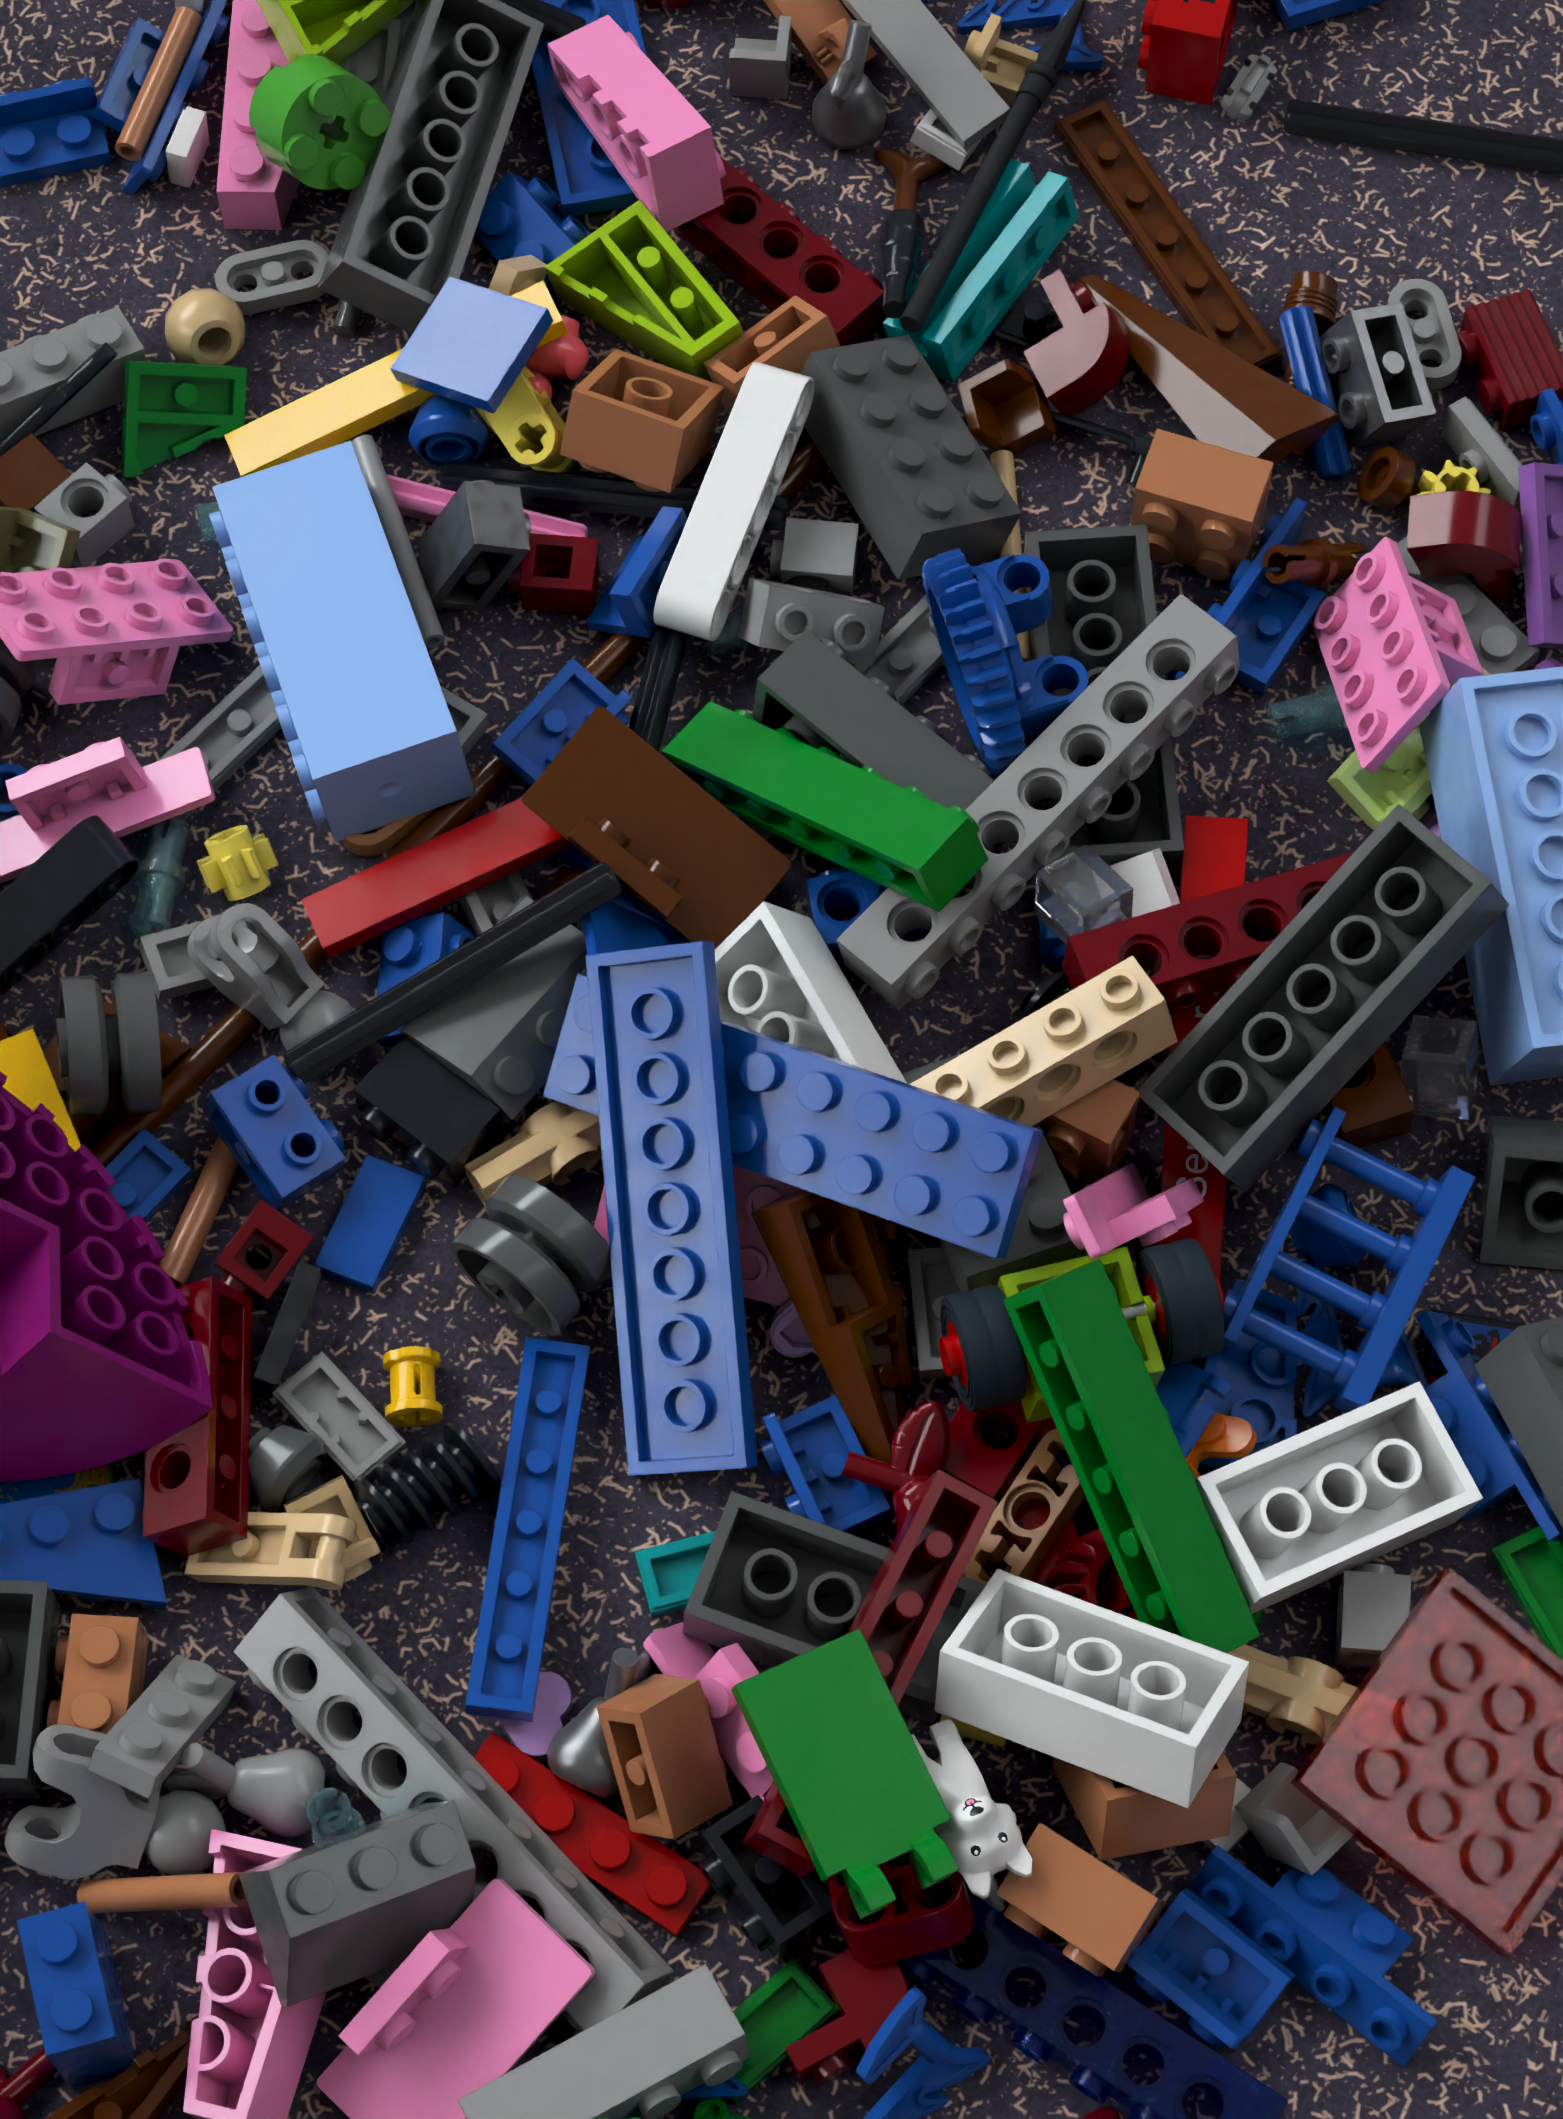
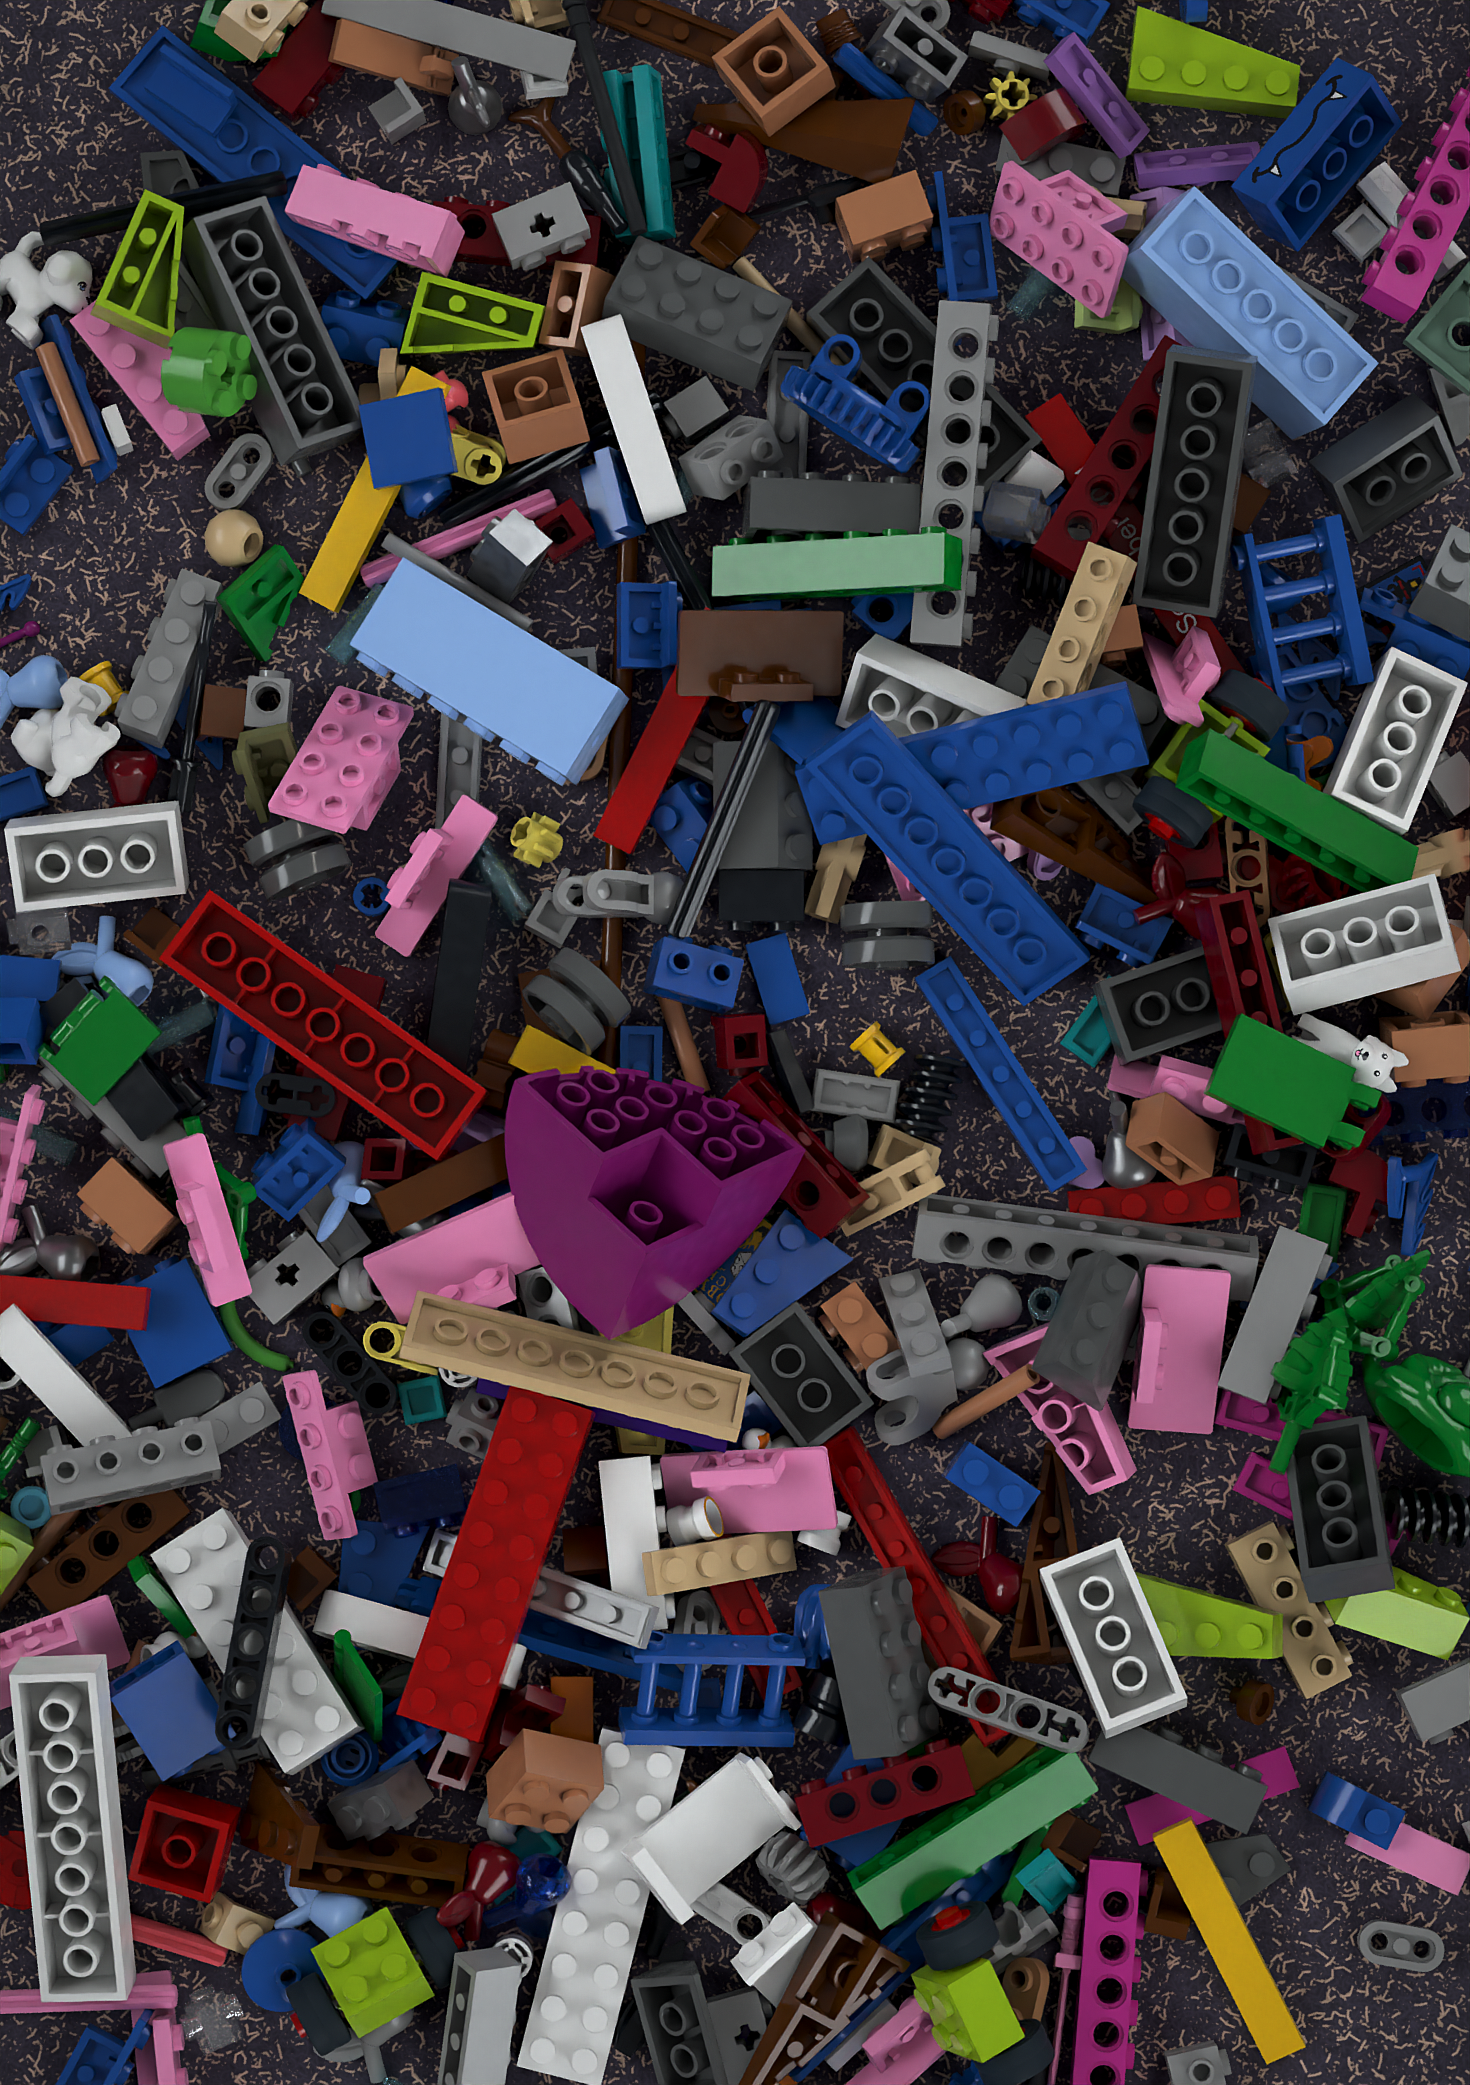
camera: 40 degrees left, 20 degrees up
(807, 245) = (558, 212): none -> light grey brick
(1201, 276) = (774, 71): none -> nougat brick
(1312, 562) = (970, 201): reddish brown pin -> none

